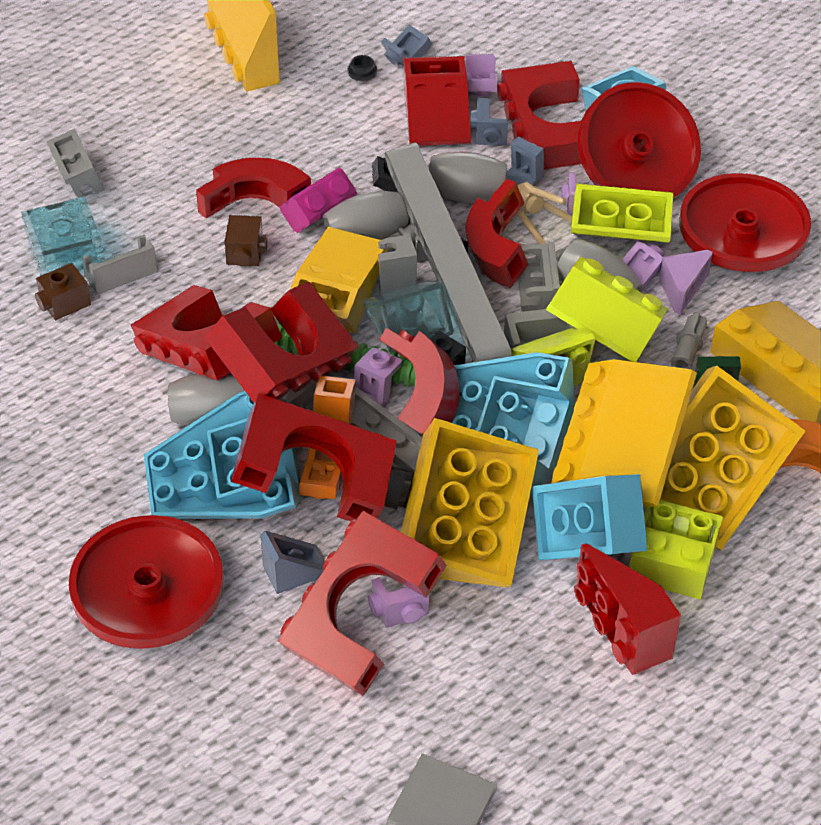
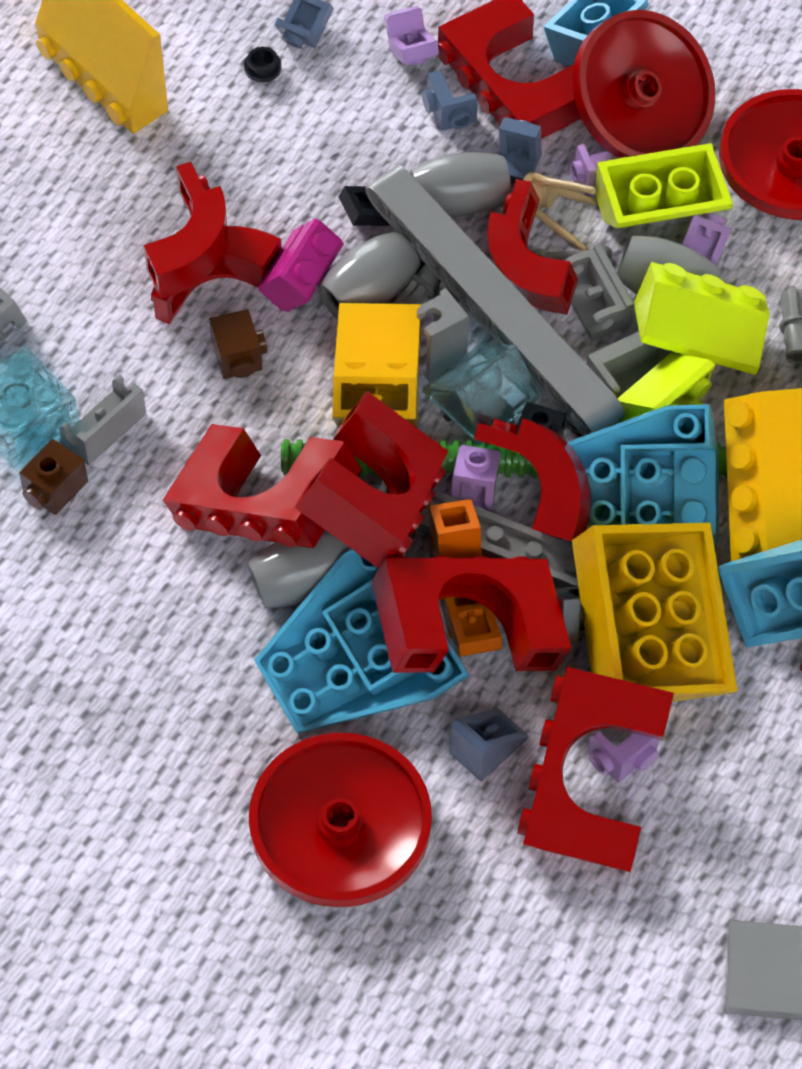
camera: 20 degrees left, 10 degrees up
(241, 163) = (198, 247): none -> red arch
(437, 100) = (376, 88): red slope -> none
(683, 276) = (754, 245): lavender slope -> none

